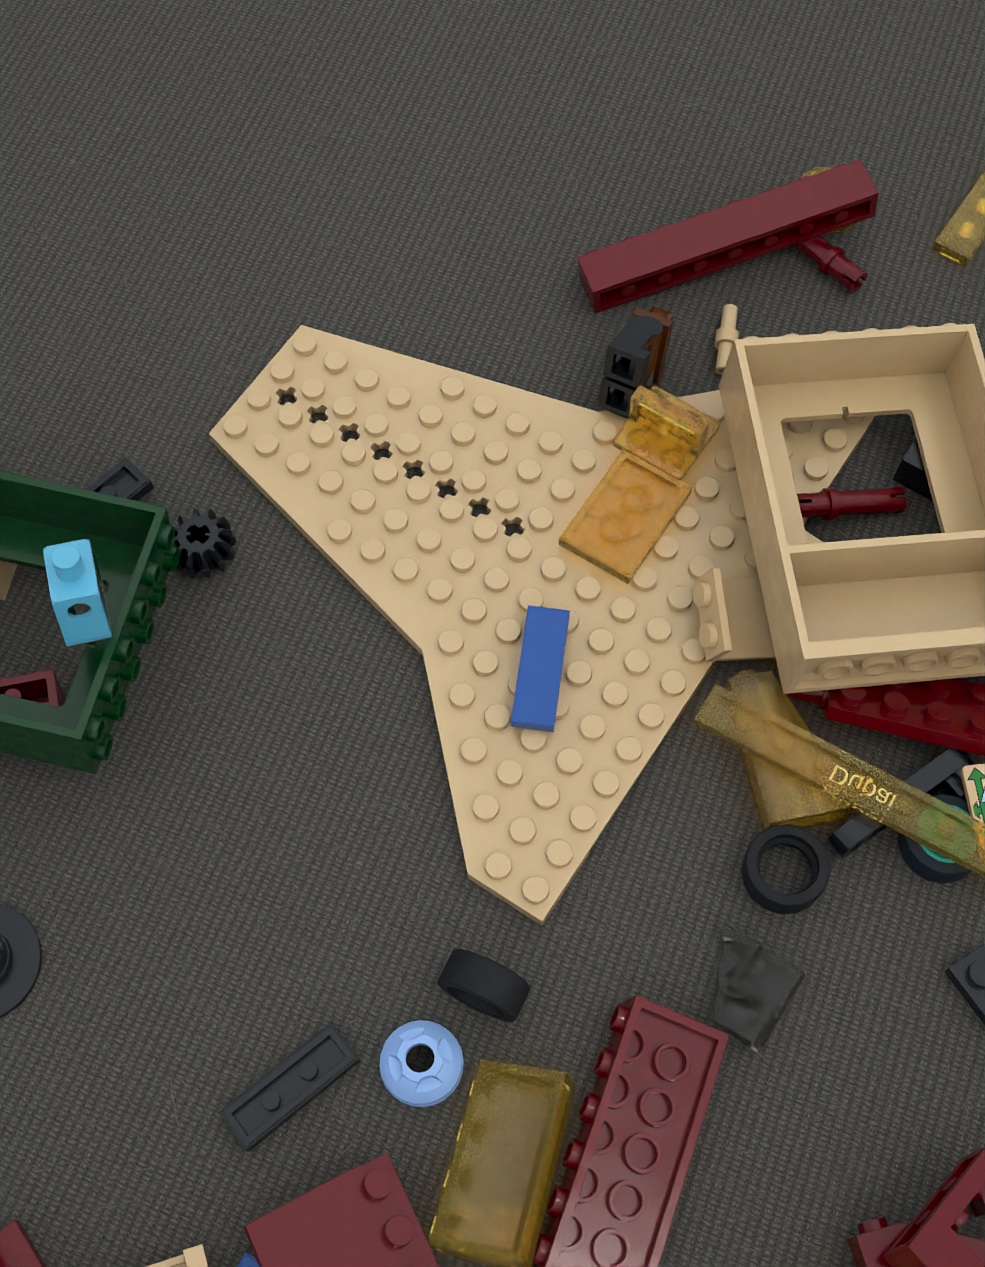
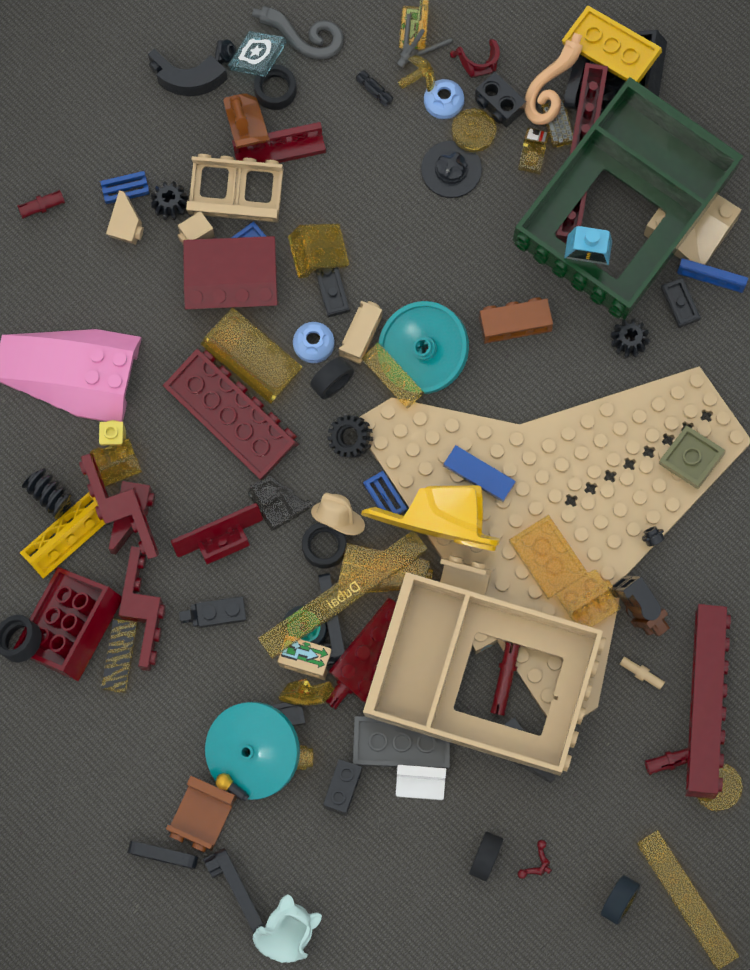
camera: 115 degrees right, 10 degrees up
(45, 445) = (712, 275): none -> blue tile
(234, 1138) = (317, 247): none -> clear yellow bracket
(239, 727) = (515, 320): none -> dark orange brick
(367, 379) = (692, 457): none -> olive plate
(367, 977) = (361, 332): none -> tan window
(396, 841) = (421, 326): none -> teal dish
(429, 883) = (392, 375): none -> clear yellow tile
(520, 384) = (653, 536): none -> black plate
(550, 906) = (337, 436): none -> black tyre
(627, 840) = (374, 479): none -> blue tile
(651, 685) = (443, 513): none -> yellow piece
(725, 867) = (338, 514): none -> tan piece
(875, 1055) = (219, 537): none -> dark red bracket

